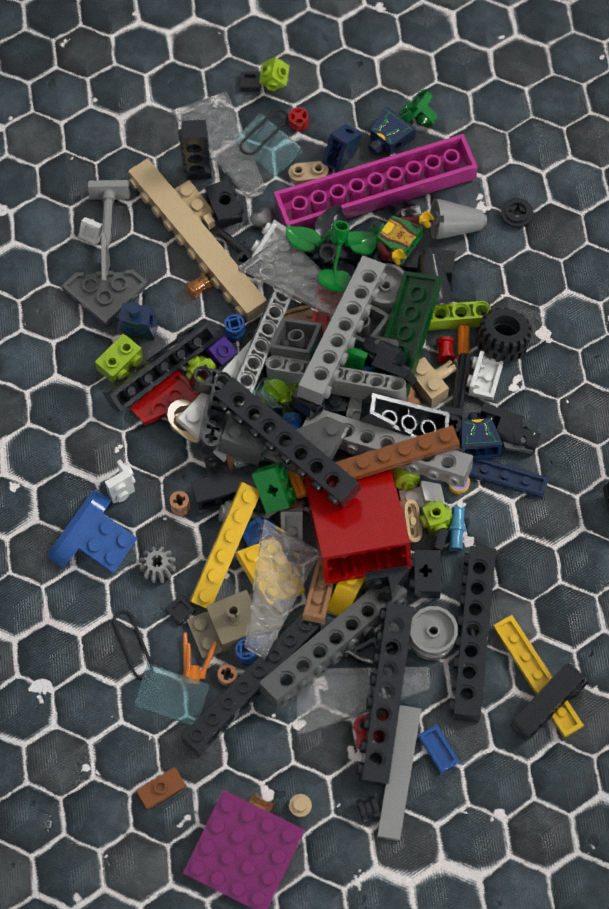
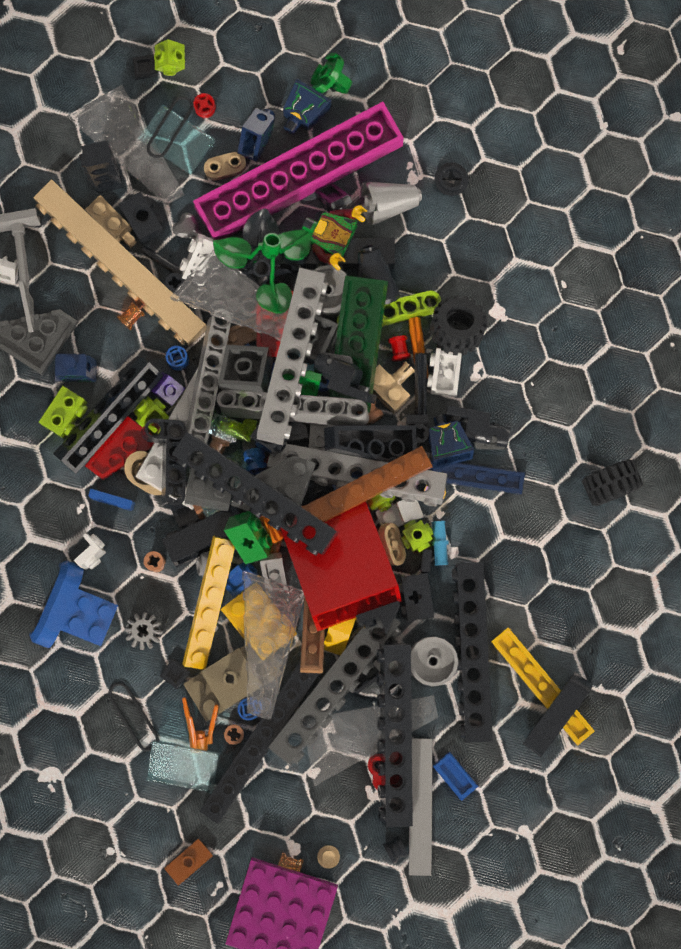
camera: 10 degrees left, 15 degrees up
(149, 442) = (111, 500): none -> blue tile

